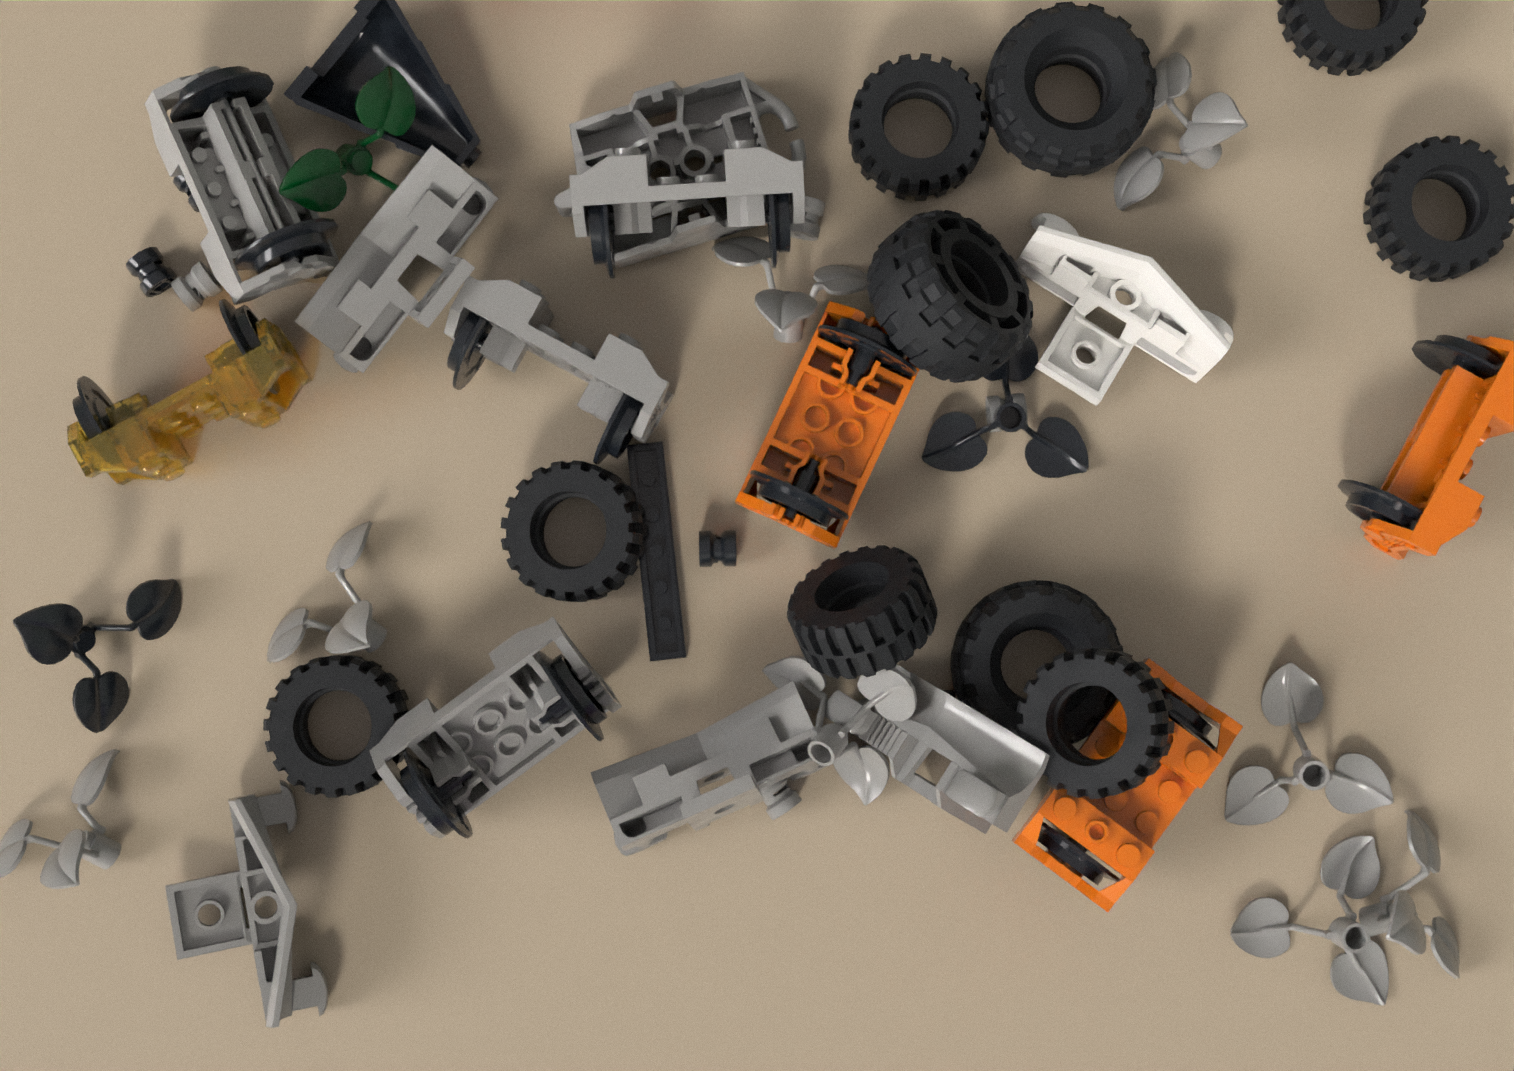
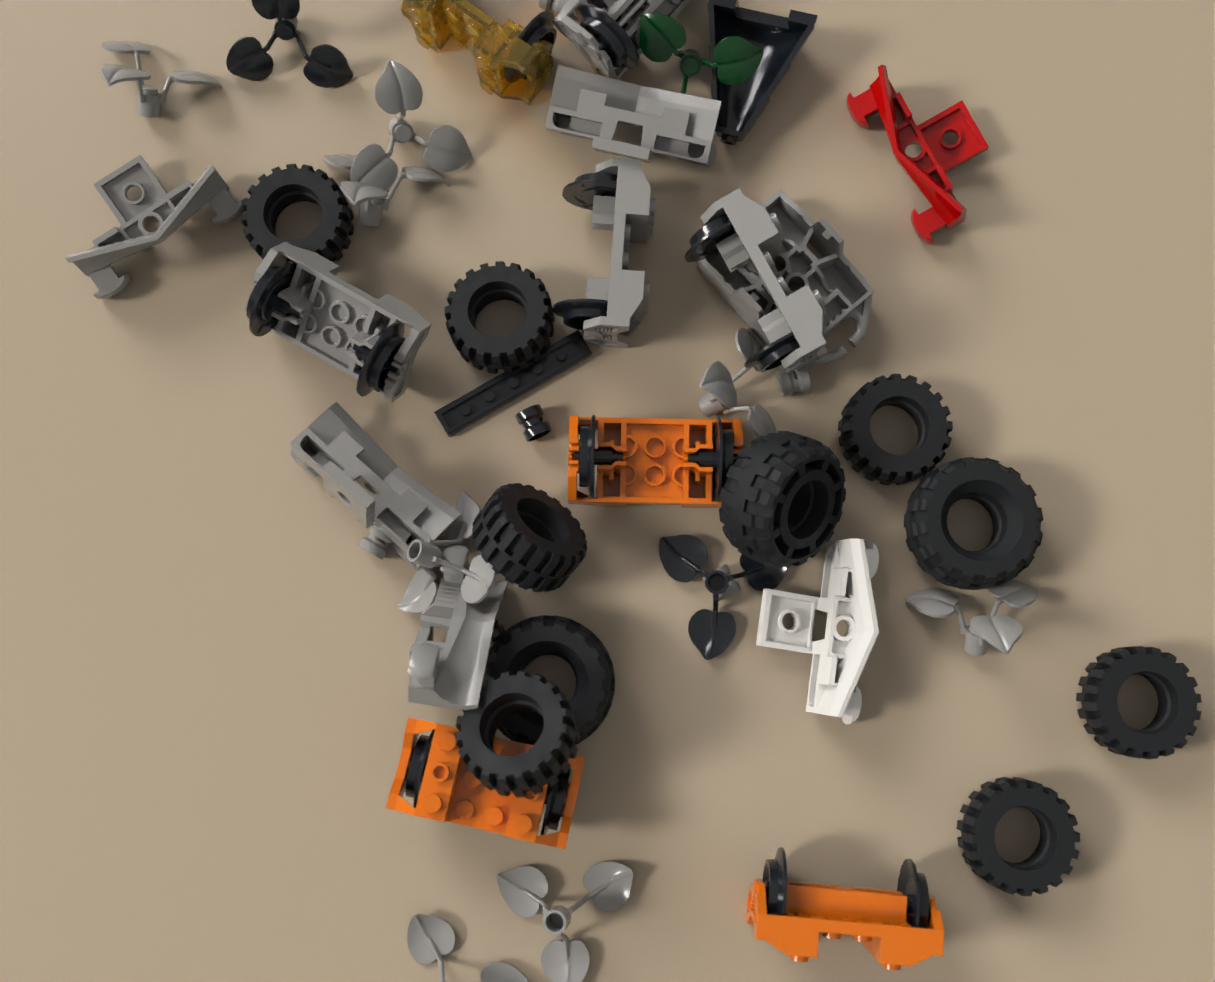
camera: 65 degrees right, 5 degrees down
(246, 538) = (396, 92): none -> light grey plant

